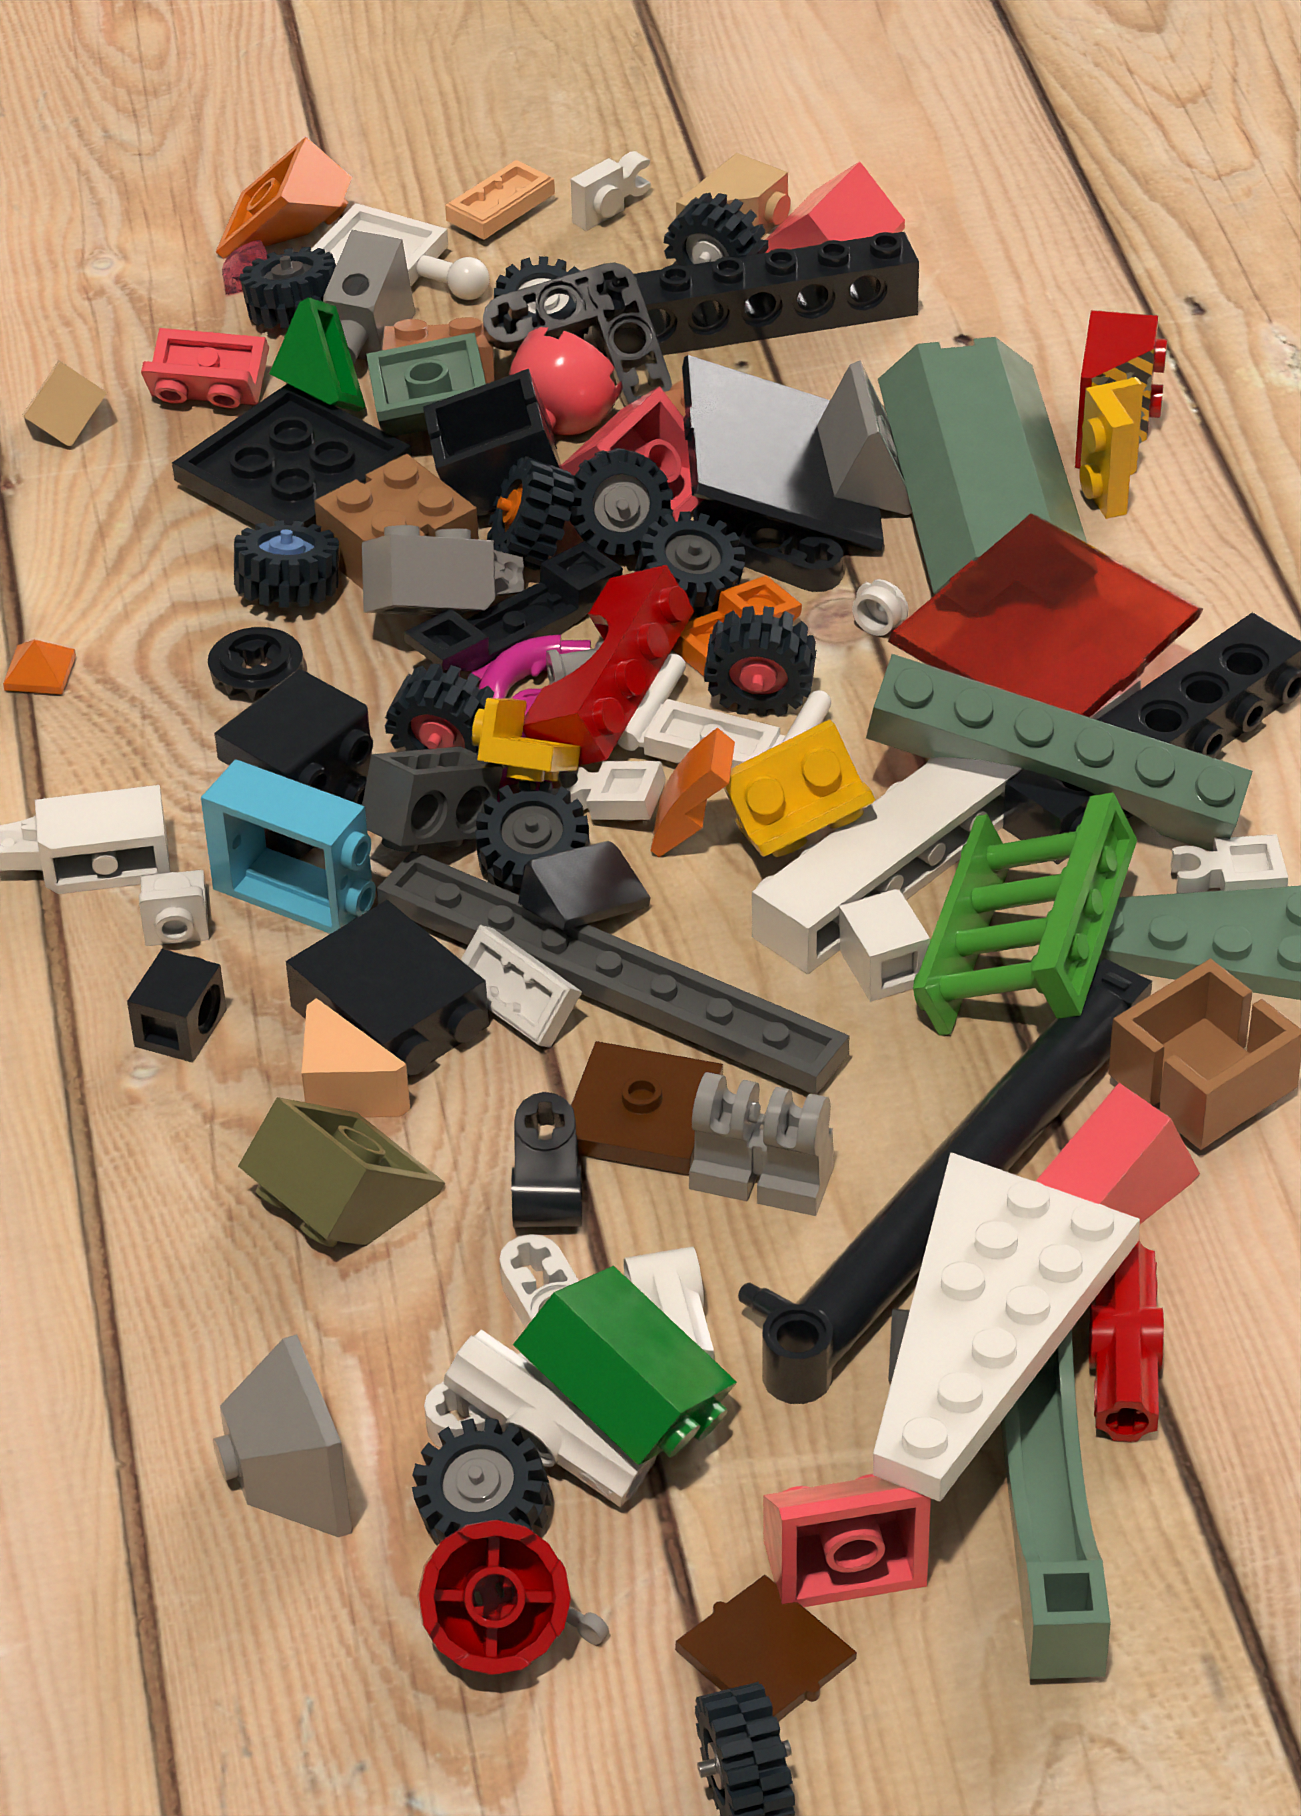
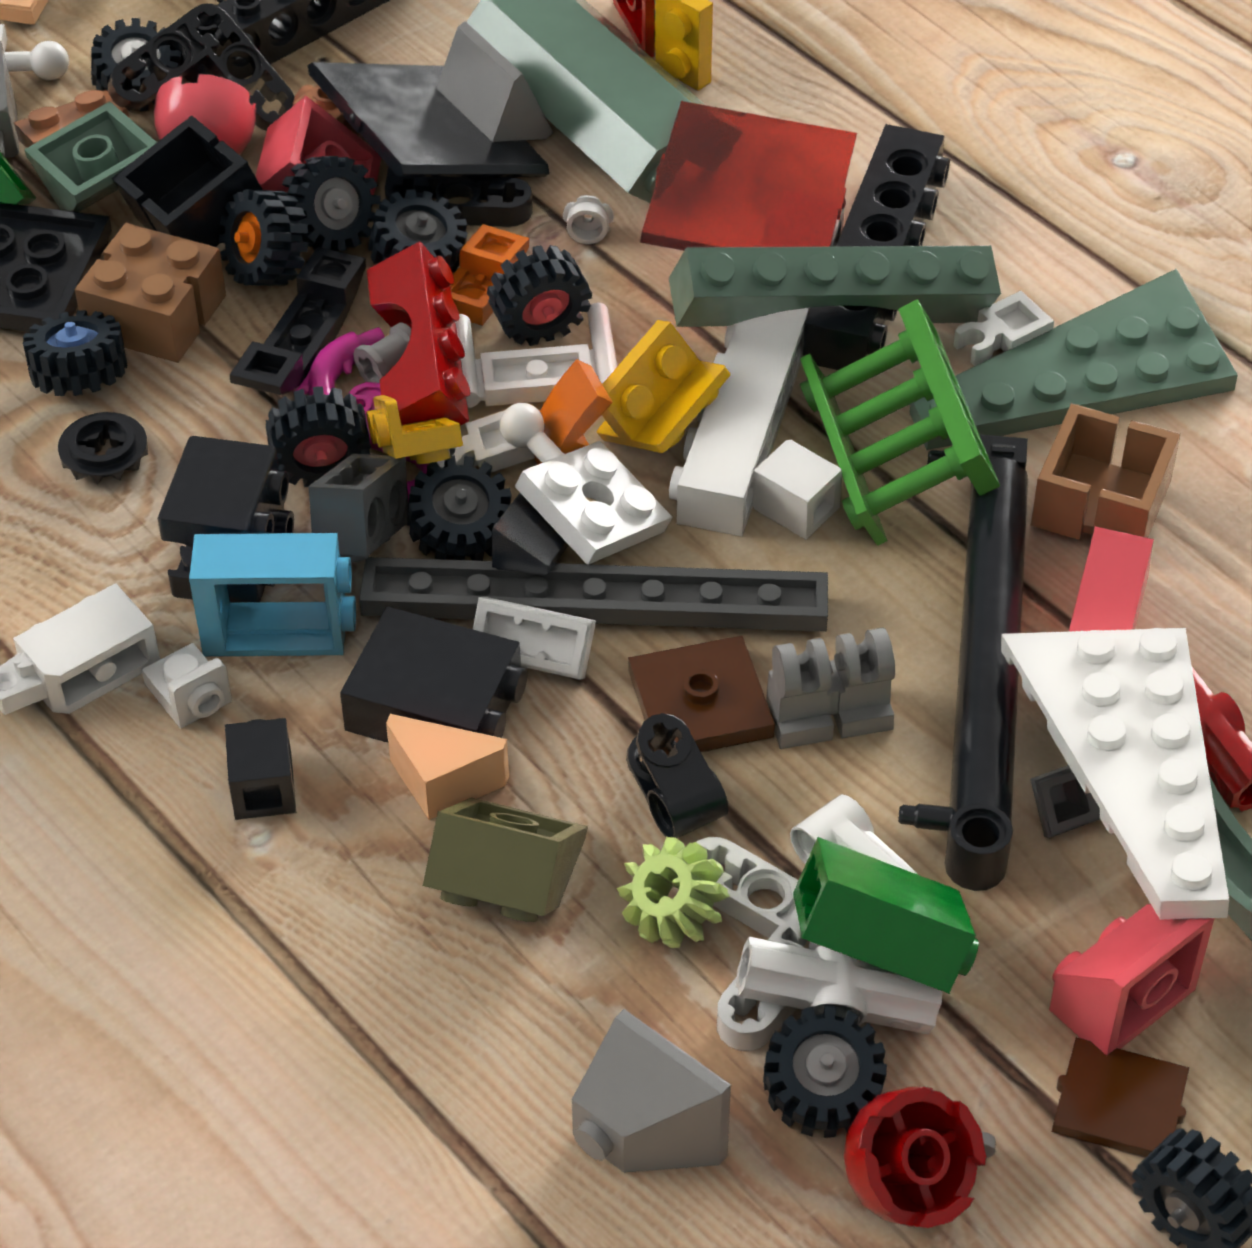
camera: 30 degrees left, 5 degrees up
(435, 573) = (219, 317): light grey hinge -> none
(461, 1268) = (652, 880): none -> yellowish green gear
(687, 851) = (558, 487): none -> white plate

